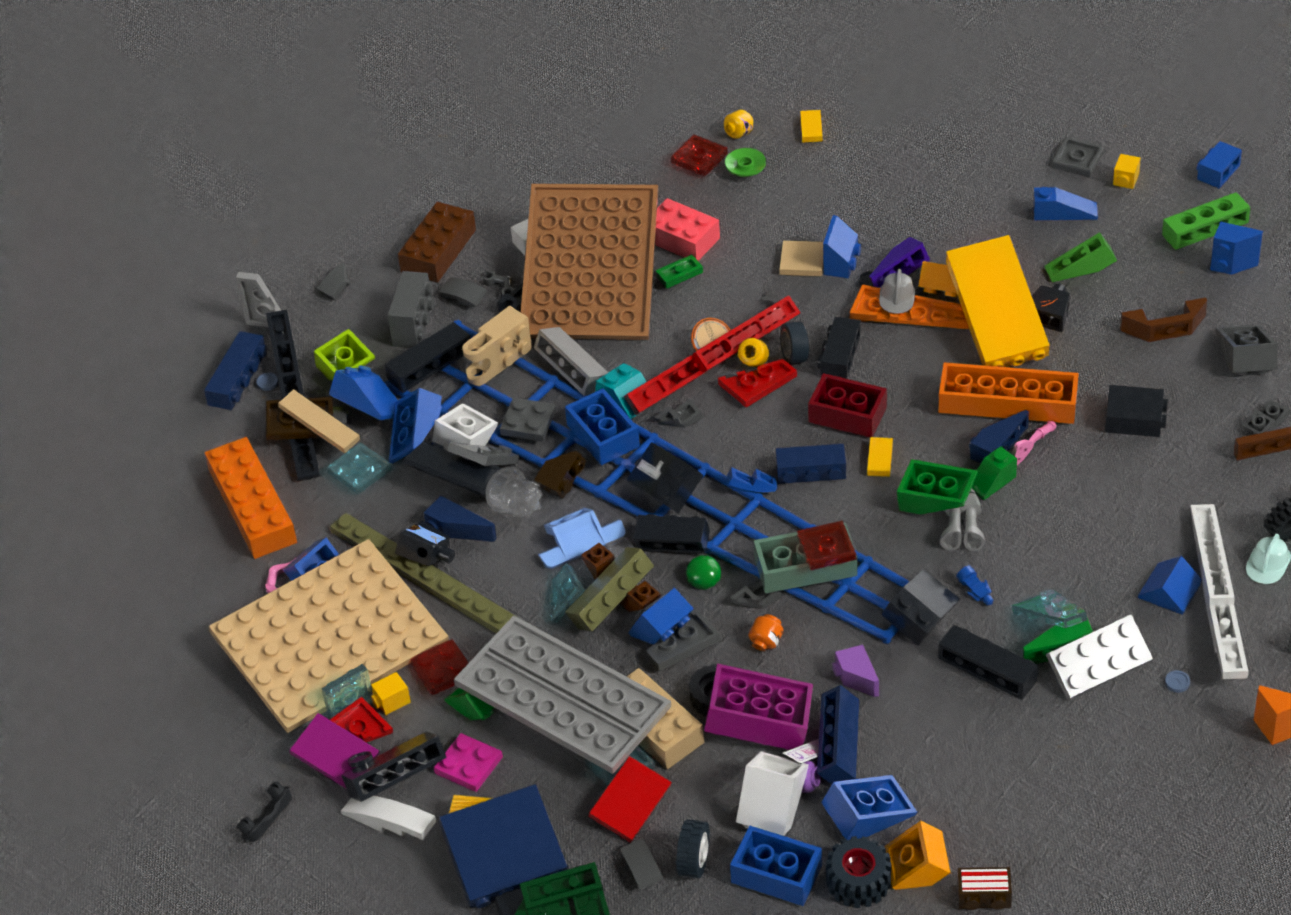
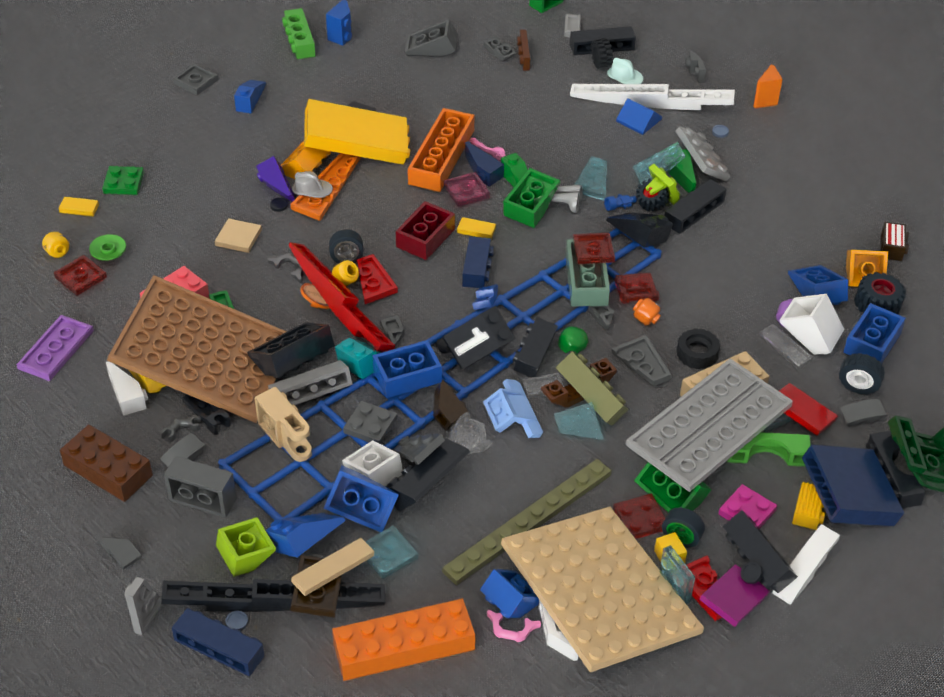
camera: 85 degrees left, 0 degrees up
(254, 829) = (794, 654): black piece -> none
(418, 695) = (686, 524): none -> black wheel
(424, 545) = (506, 507): black torso -> none
(427, 357) = (269, 481): black brick -> none
(459, 522) = (474, 490): dark blue slope -> none
(562, 792) = (787, 446): none -> bright green arch
(591, 168) = (55, 347): none -> medium lavender tile
(617, 333) = (292, 349): none -> black slope
(662, 618) = (631, 364): blue slope -> none
(759, 707) = (728, 320): magenta slope -> none
(804, 752) = (771, 302): white sticker -> none
(815, 616) = (636, 284): none -> clear red plate
(838, 735) = (757, 285): dark blue brick -> none
(840, 249) = (247, 208): blue slope -> none
(840, 347) = (368, 228): black brick -> none
(856, 670) = (692, 269): medium lavender slope -> none
(867, 147) = (123, 180): none -> green plate
(946, 433) = (466, 189): none -> clear pink plate
(1001, 615) = (658, 191): none -> plate
(1013, 553) = (594, 178): none -> clear light blue wing
(1083, 259) = (313, 85): bright green slope -> none
(1126, 171) = (228, 57): yellow brick -> none
(1135, 411) = (476, 98): black brick -> none
(1137, 325) = (392, 80): reddish brown slope -> none
(1219, 164) = (244, 16): blue brick -> none

